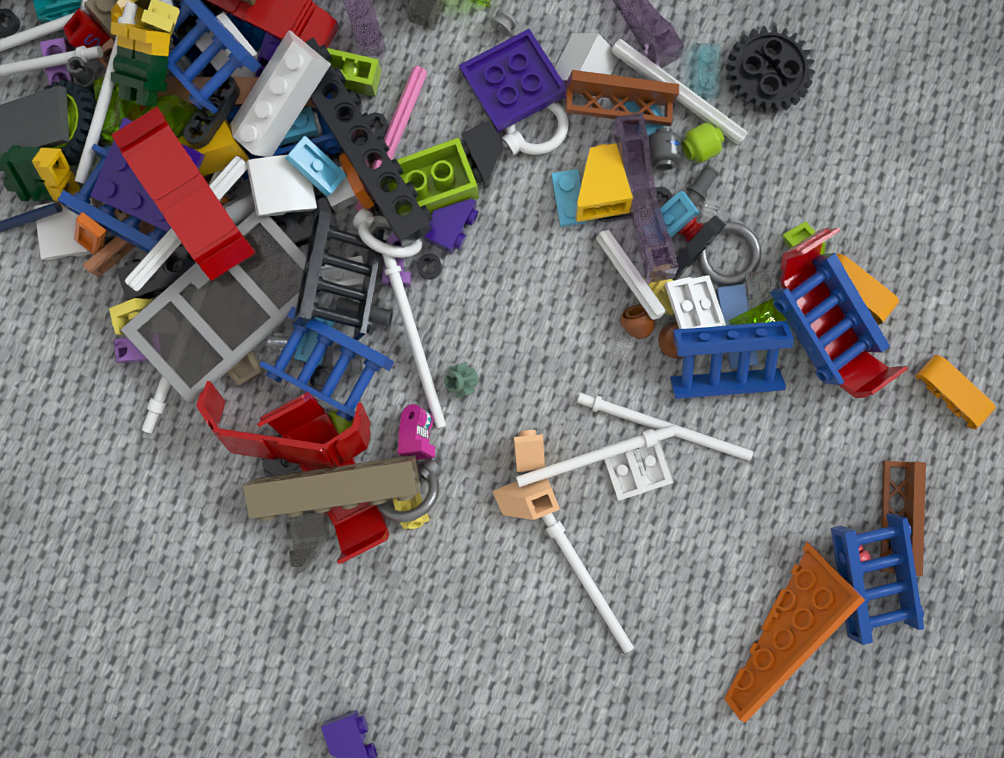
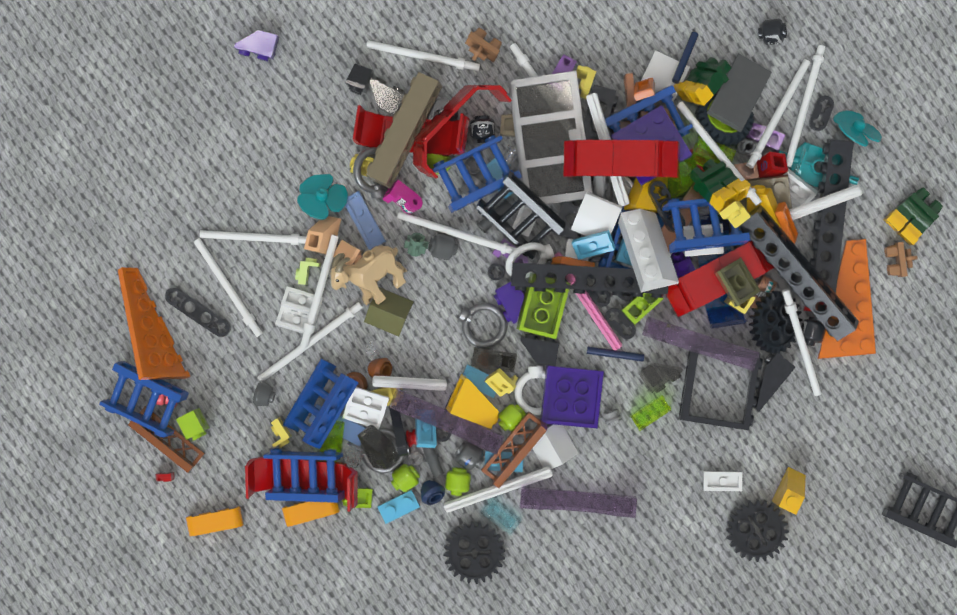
camera: 125 degrees right, 5 degrees up
(171, 464) = (482, 48): none -> medium nougat hips
(210, 477) = (460, 63): none -> white bar
(268, 395) = (482, 128): none -> black head
(308, 585) = (359, 79): none -> black slope
(384, 83) = (624, 320): none -> black beam
(430, 68) = (615, 354): none -> dark blue bar
(442, 347) = (442, 246): none -> dark grey head
(476, 463) = (364, 221): none -> medium blue tile
(487, 539) = (315, 196): none -> teal piece
(502, 262) = (466, 316): none -> flat silver piece
(533, 198) = (493, 359): none -> clear smoke slope
(534, 410) = (367, 271): none -> tan animal
(553, 169) = (501, 382): none -> light yellow bracket
(563, 358) = (390, 313): none -> olive slope
(585, 131) = (510, 417): none -> lime head
(590, 491) = (303, 272): none -> yellowish green bracket
(689, 518) = (248, 318): none -> white bar
(725, 586) = (196, 314): none -> black beam
(732, 257) = (378, 448): none -> clear smoke slope
(737, 163) = (432, 492): none -> dark blue cone
(743, 204) = (405, 478): none -> lime head
(766, 437) = (263, 394): none -> dark grey cone
(780, 191) = (398, 506): none -> medium azure plate
(793, 386) = (282, 431): none -> light yellow bracket
(865, 496) = (193, 424): none -> lime brick
(946, 486) = (165, 477): none -> red tile

